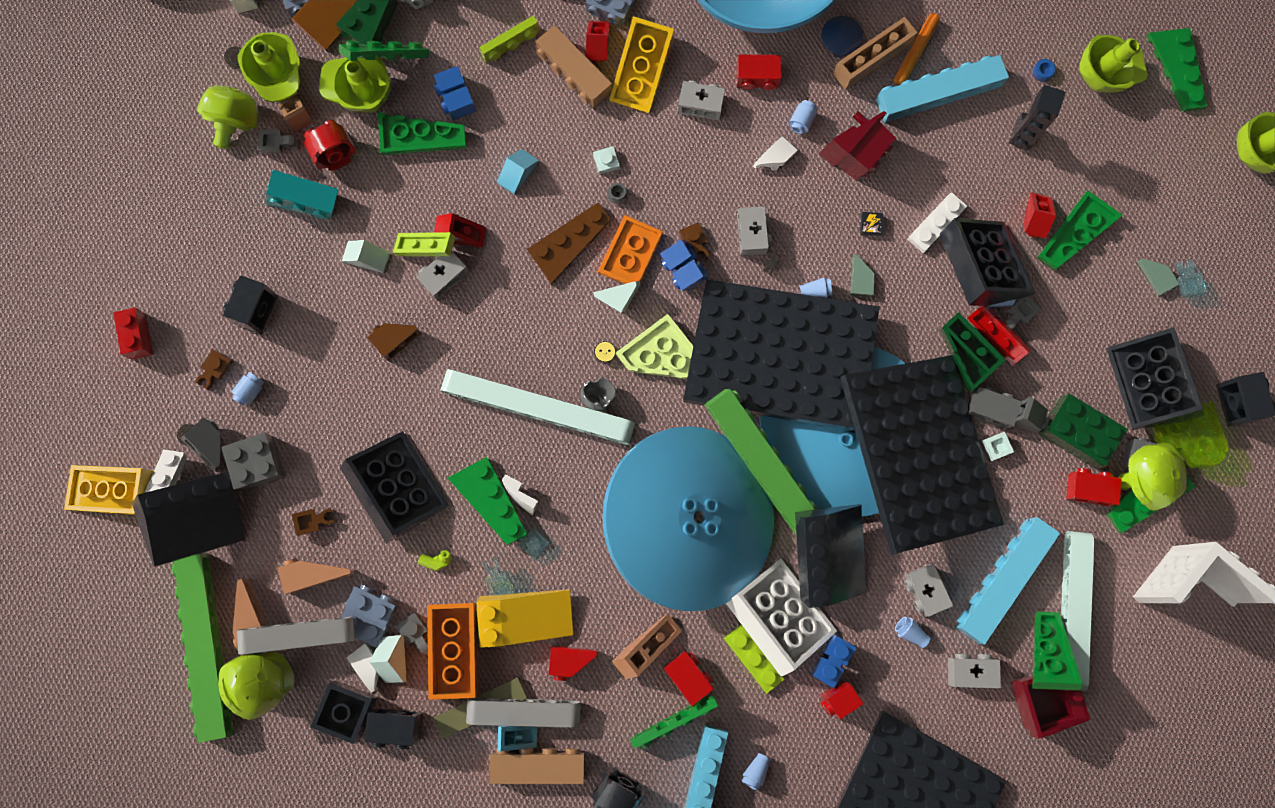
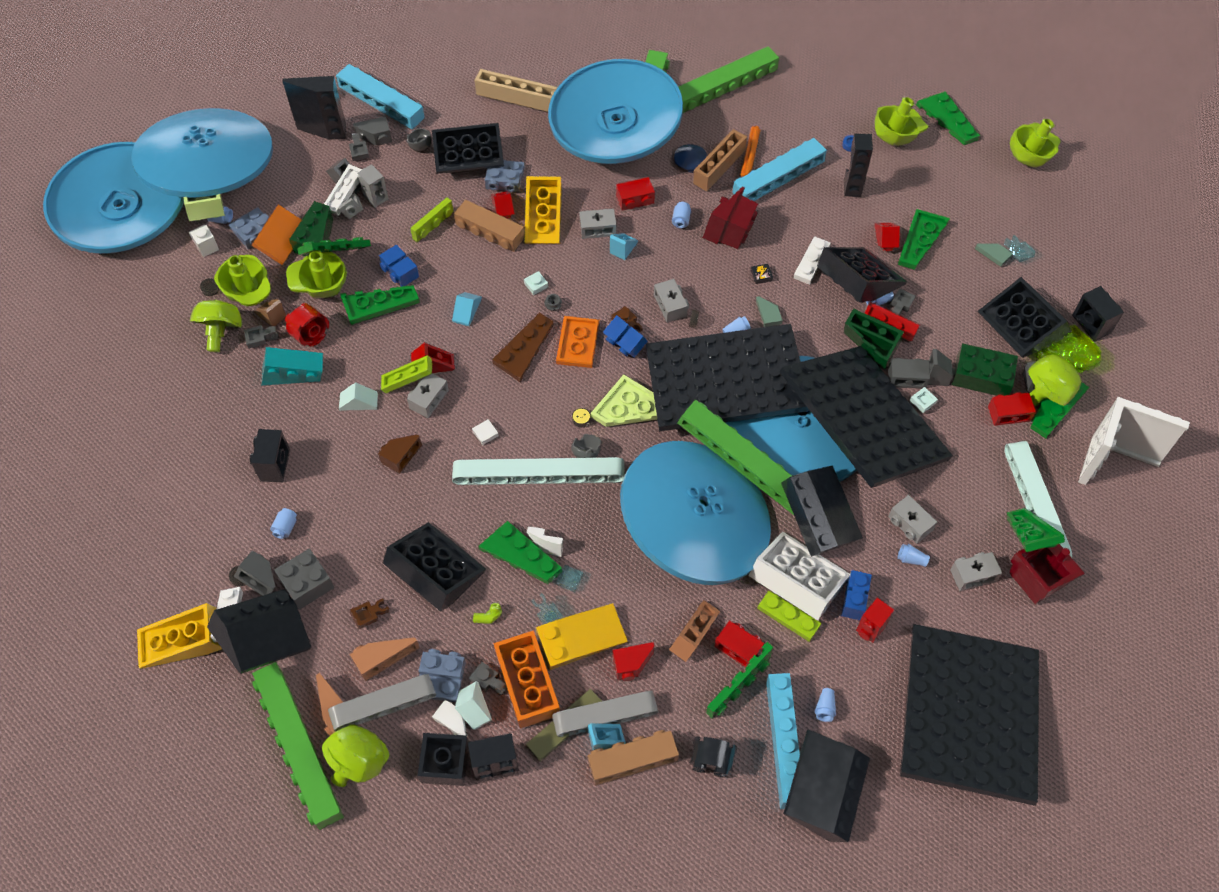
camera: 15 degrees left, 20 degrees down
(133, 333) = (171, 507): red brick -> none
(214, 366) = (248, 515): reddish brown plate -> none
(494, 339) = (485, 432): none -> white tile
(619, 296) = (578, 371): light aqua slope -> none
(721, 137) = (622, 245): none -> medium azure slope
(776, 155) = (670, 245): white slope -> none
(1007, 580) = (972, 496): medium azure brick -> none

